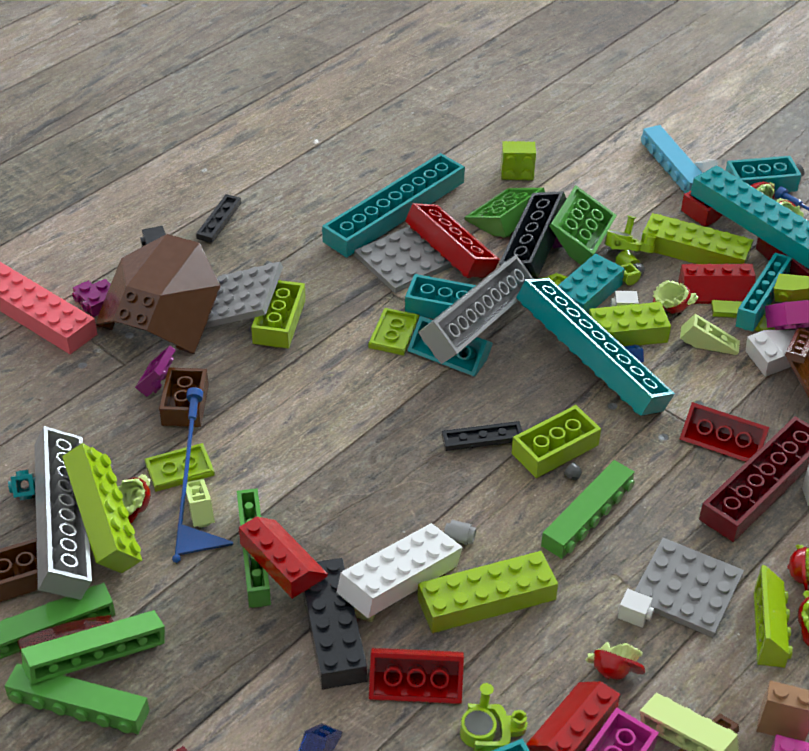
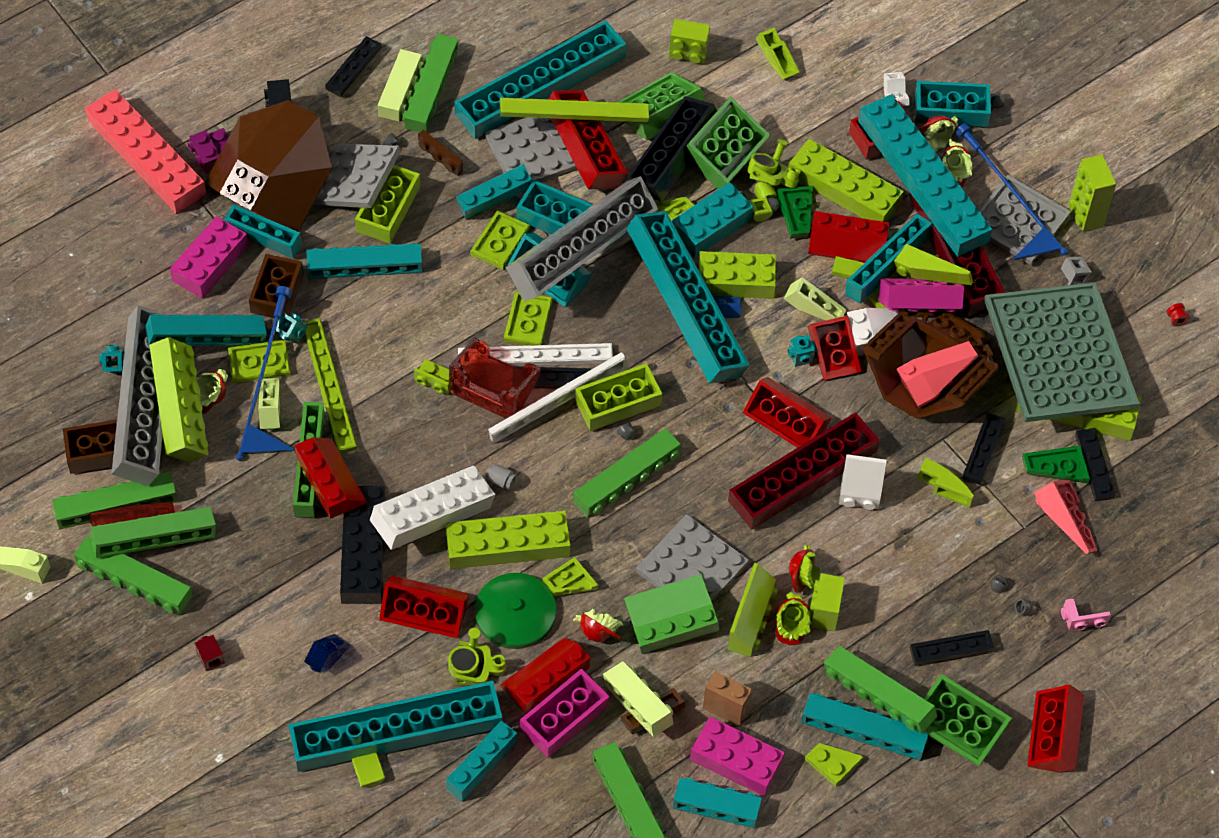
camera: 10 degrees right, 15 degrees up
(109, 382) = (209, 257): none -> dark pink brick
(122, 439) = (207, 329): none -> teal brick
(145, 348) = (265, 231): none -> teal brick
(155, 372) = (253, 255): magenta plate -> none
(207, 429) = (291, 327): none -> teal brick
(257, 476) = (329, 386): none -> lime tile
(266, 226) = (400, 85): none -> yellowish green brick
(267, 364) = (364, 261): none -> teal brick
(294, 221) = (431, 83): none -> bright green brick
(318, 270) = (440, 153): none -> reddish brown plate
(365, 453) = (433, 377): none -> lime bracket
(378, 290) = (494, 191): none -> teal brick
(425, 448) = (491, 382): none -> clear red windscreen
(436, 213) = (574, 110): none -> lime tile
(442, 392) = (528, 320): none -> lime tile
(460, 419) = (552, 354): none -> white tile
(492, 452) = (555, 398): none -> white tile
(517, 662) = (515, 610): none -> green dish
(565, 620) = (569, 579): none -> lime wing
(595, 162) = (777, 53): none -> lime slope
(624, 298) = (743, 243): white brick -> none
(635, 608) = (635, 579): white brick -> none
(659, 267) = (796, 209): none -> green wing
(670, 156) = (863, 59): medium azure brick -> none
(674, 296) = (793, 248): yellowish green hair -> none
(689, 635) = (671, 614): none -> bright green slope
(715, 377) = (801, 350): none -> teal brick
(744, 369) = (835, 347): none -> red slope

